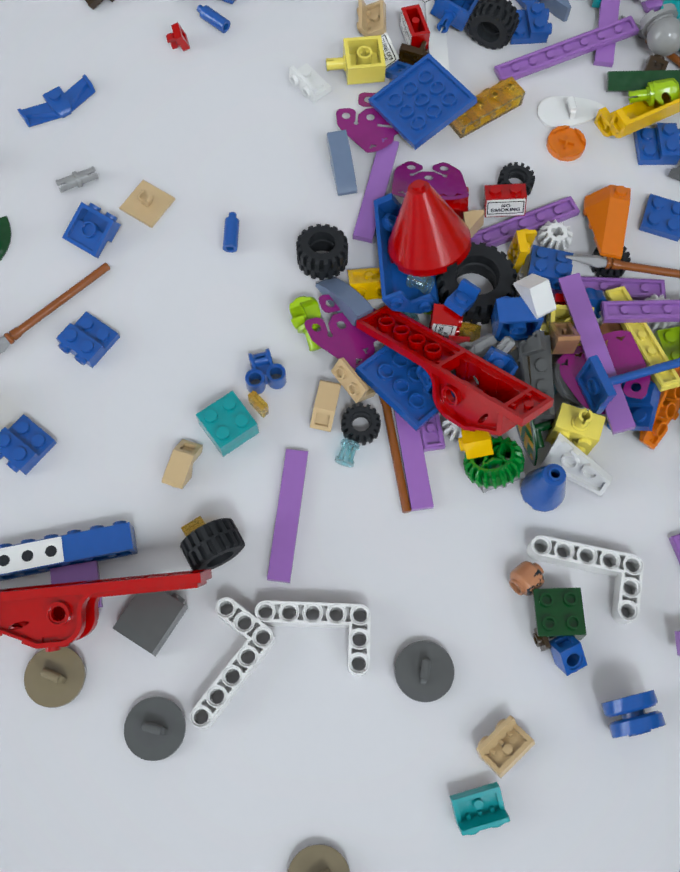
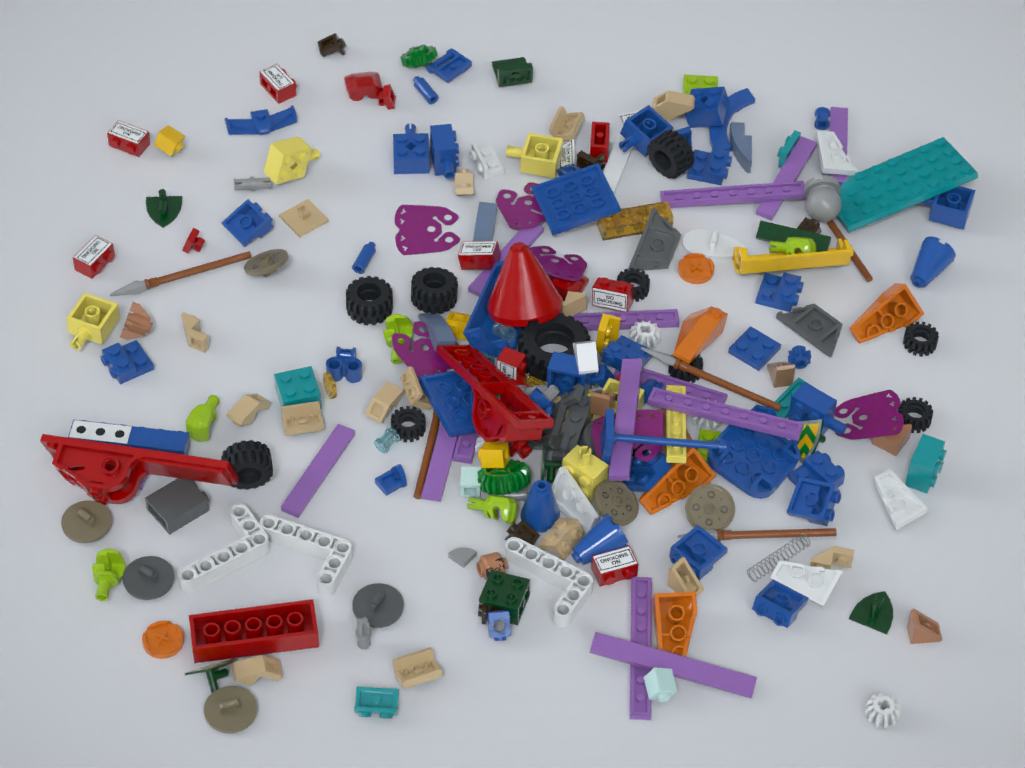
camera: 20 degrees right, 20 degrees down
(15, 394) = (137, 323): none -> nougat brick
(41, 270) = (193, 242): none -> red tile
(58, 53) = (278, 83): none -> brick
(80, 380) = (193, 333): none -> tan slope
(87, 339) = (210, 302): blue plate -> none
(105, 744) = (107, 571): none -> lime piece
(107, 141) = (289, 159): none -> light yellow brick
(130, 272) = (266, 262): none -> dark tan shield
(135, 494) = (200, 419): none -> lime piece
(147, 30) = (363, 84): none -> red slope
(203, 807) = (163, 639): none -> orange tile
(229, 94) = (411, 152): none -> blue brick
(246, 457) = (302, 418): none -> tan bracket
(259, 270) = (369, 311): none -> black tyre
(264, 83) = (444, 150): none -> blue brick
(267, 181) = (415, 225): none -> magenta piece
(278, 836) = (211, 675): none -> dark green shield
(297, 114) = (464, 182): none -> tan slope
(304, 766) = (253, 631): none -> red brick
(328, 815) = (251, 669): none -> tan slope
(351, 195) = (478, 255): none -> brick
(371, 500) = (391, 480): none -> blue tile
(430, 724) = (363, 633): none -> light grey axle
(456, 475) = (469, 484): none -> light aqua brick
(463, 297) = (530, 349): blue bracket -> none
(486, 572) = (462, 556): none -> light grey tile
(496, 498) = (507, 506): none -> lime piece
(520, 128) = (656, 244): none -> dark grey wing
(538, 523) = (523, 532): none -> dark brown bracket
(579, 512) = (562, 537): none -> tan bracket
(618, 453) = (617, 501): none -> dark tan shield
(626, 507) = (599, 539): none -> blue cone
(634, 718) = (529, 674): blue wheel -> none
(650, 531) = (614, 566): none -> brick

